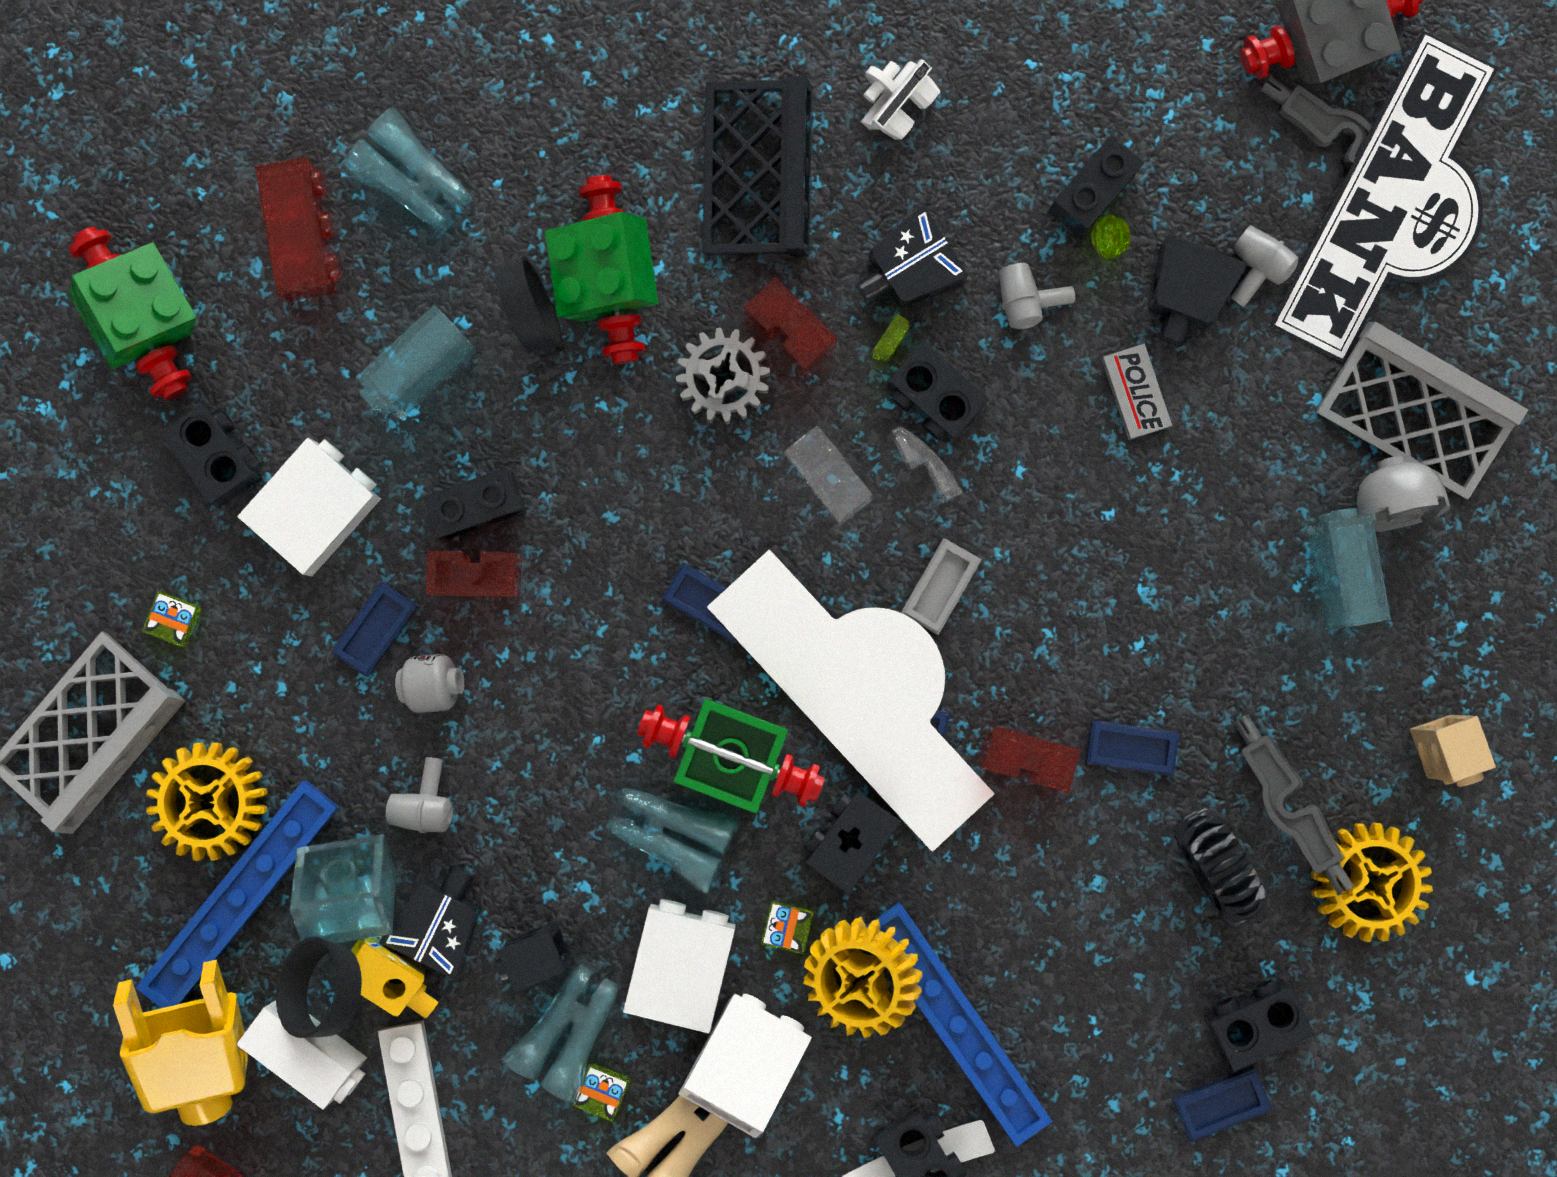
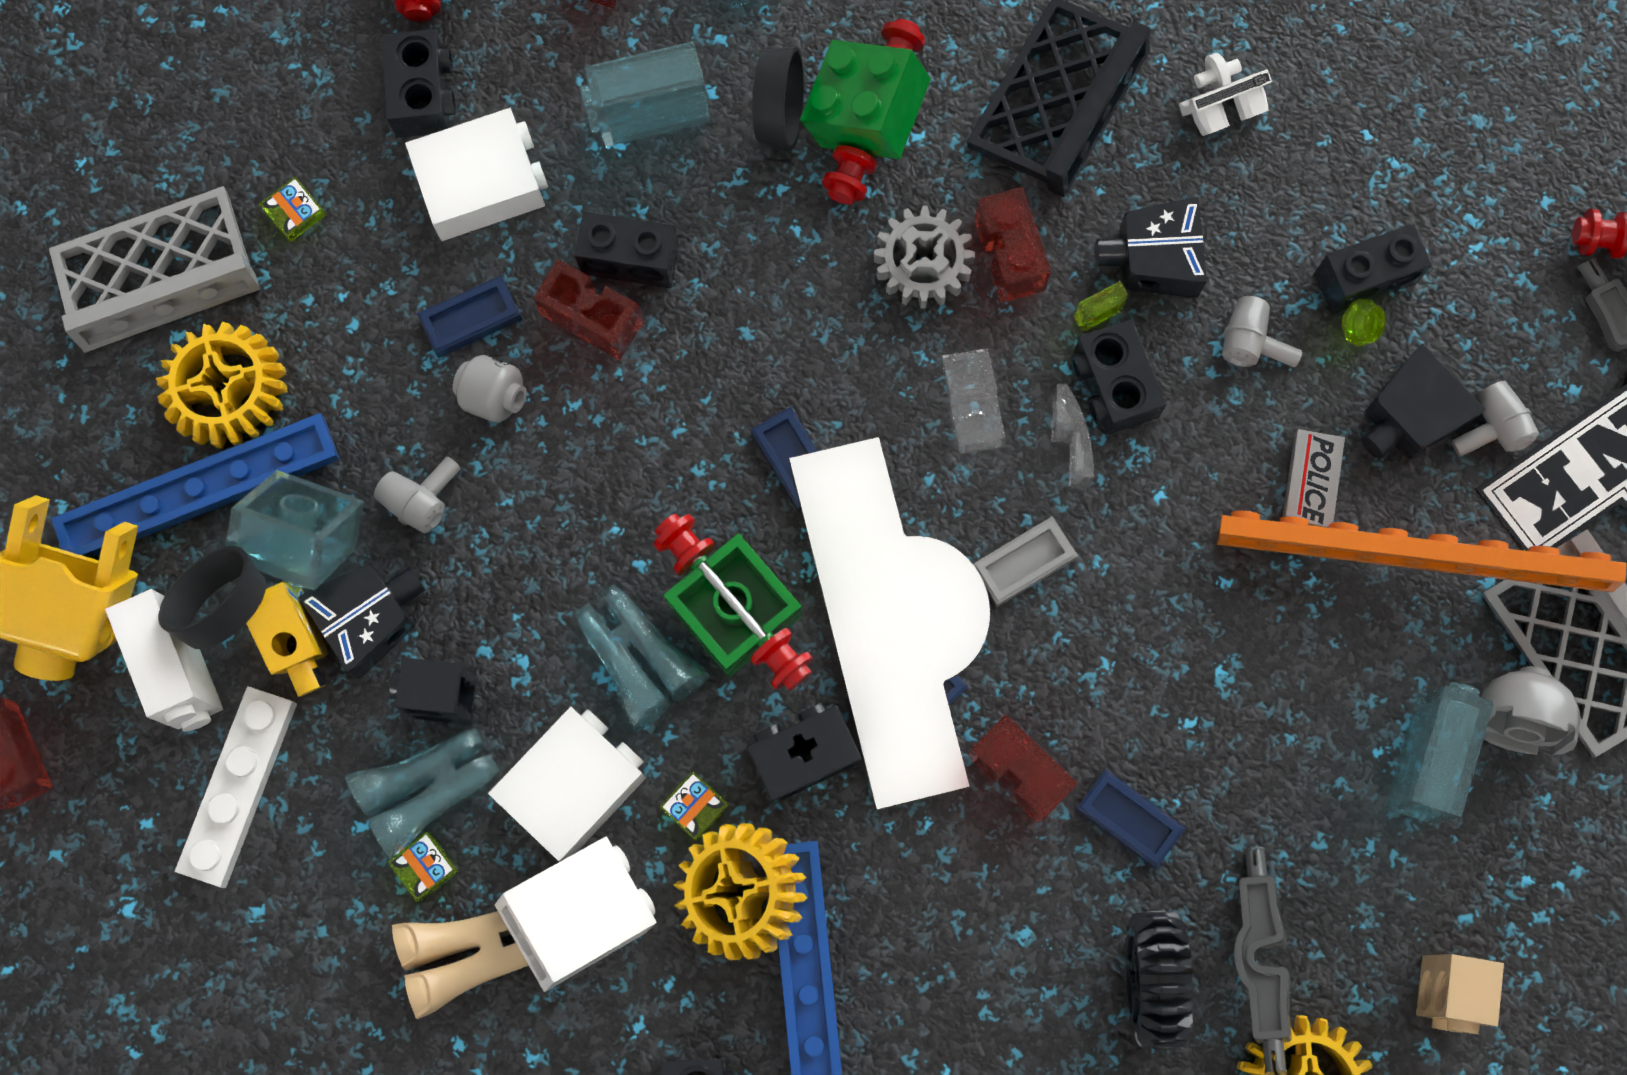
camera: 30 degrees right, 10 degrees down
(1267, 406) = (1436, 553): none -> orange plate

